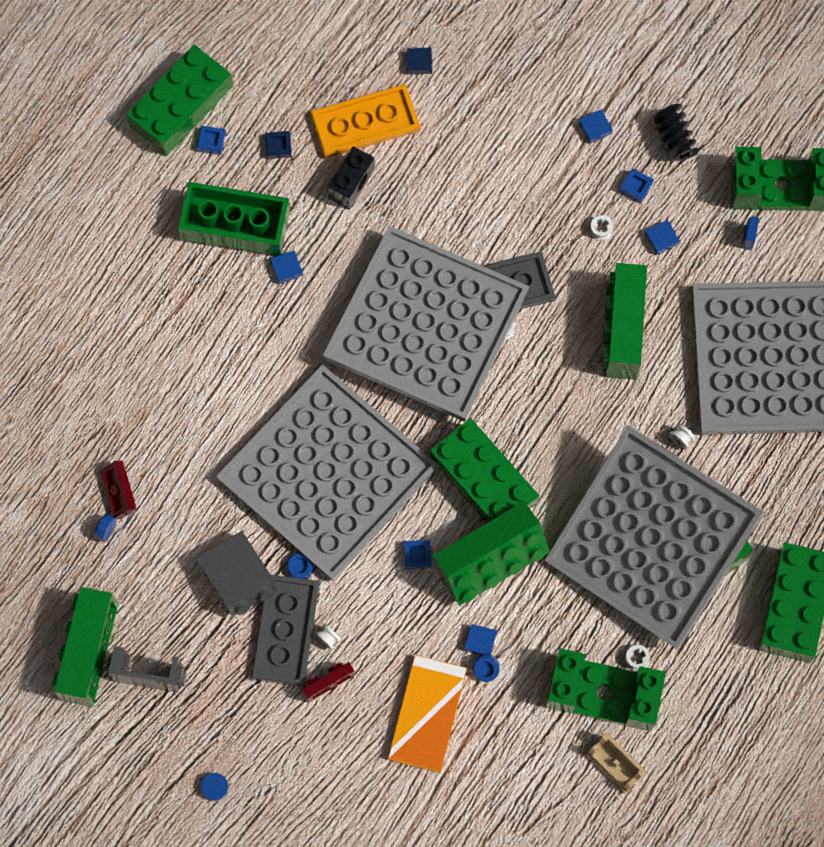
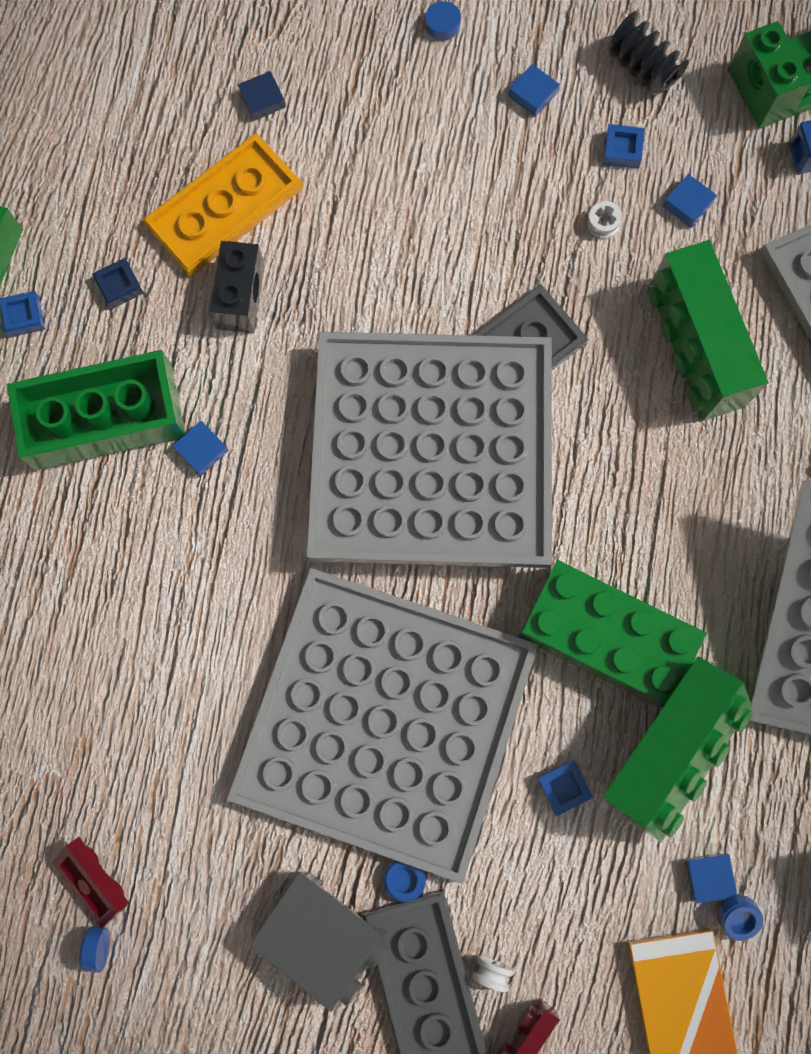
camera: 20 degrees left, 5 degrees up
(557, 57) = (443, 20): none -> blue tile

